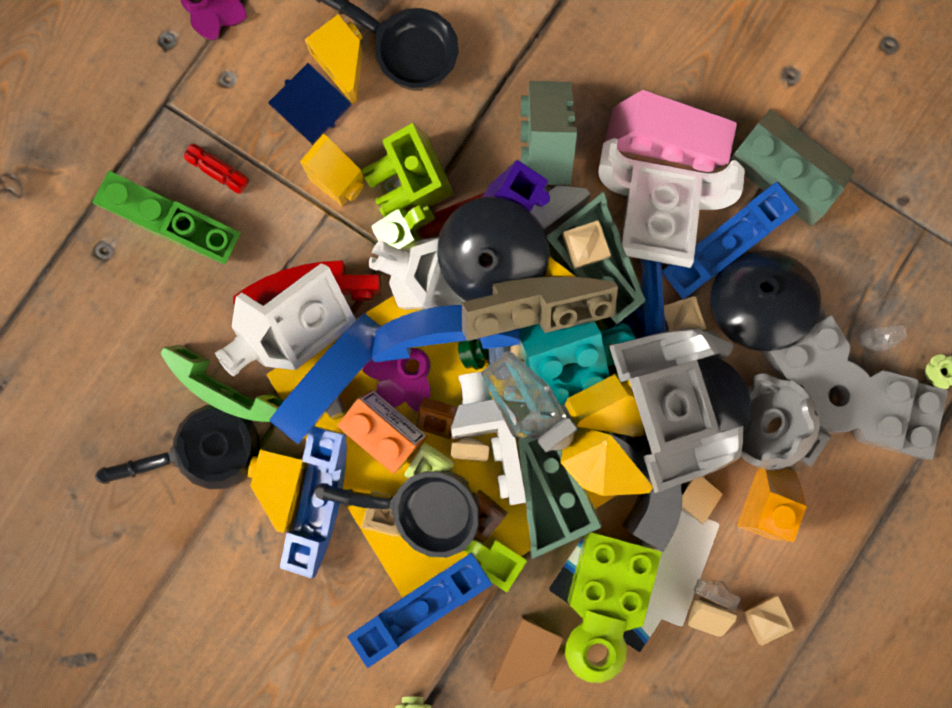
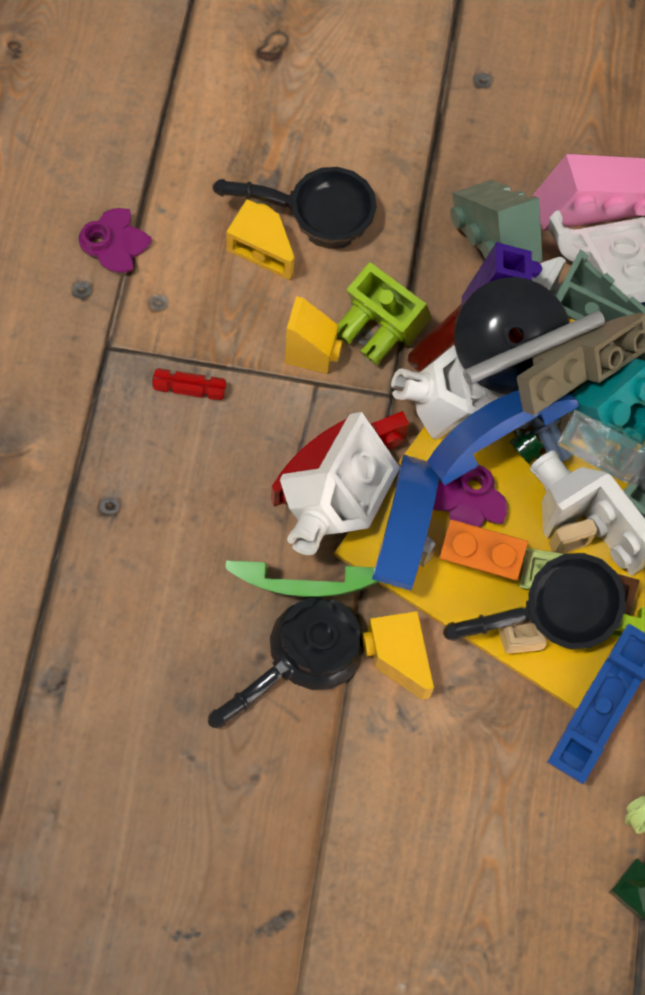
camera: 30 degrees left, 15 degrees down
(166, 218) = (167, 448): bright green slope -> none
(310, 103) = (250, 294): clear blue piece -> none
(316, 518) = (449, 660): blue slope -> none
(400, 227) = (392, 361): plate -> none
(436, 417) = (526, 518): reddish brown tile -> none
(497, 278) = (533, 347): none -> light grey piece
(586, 244) = (591, 295): tan tile -> none

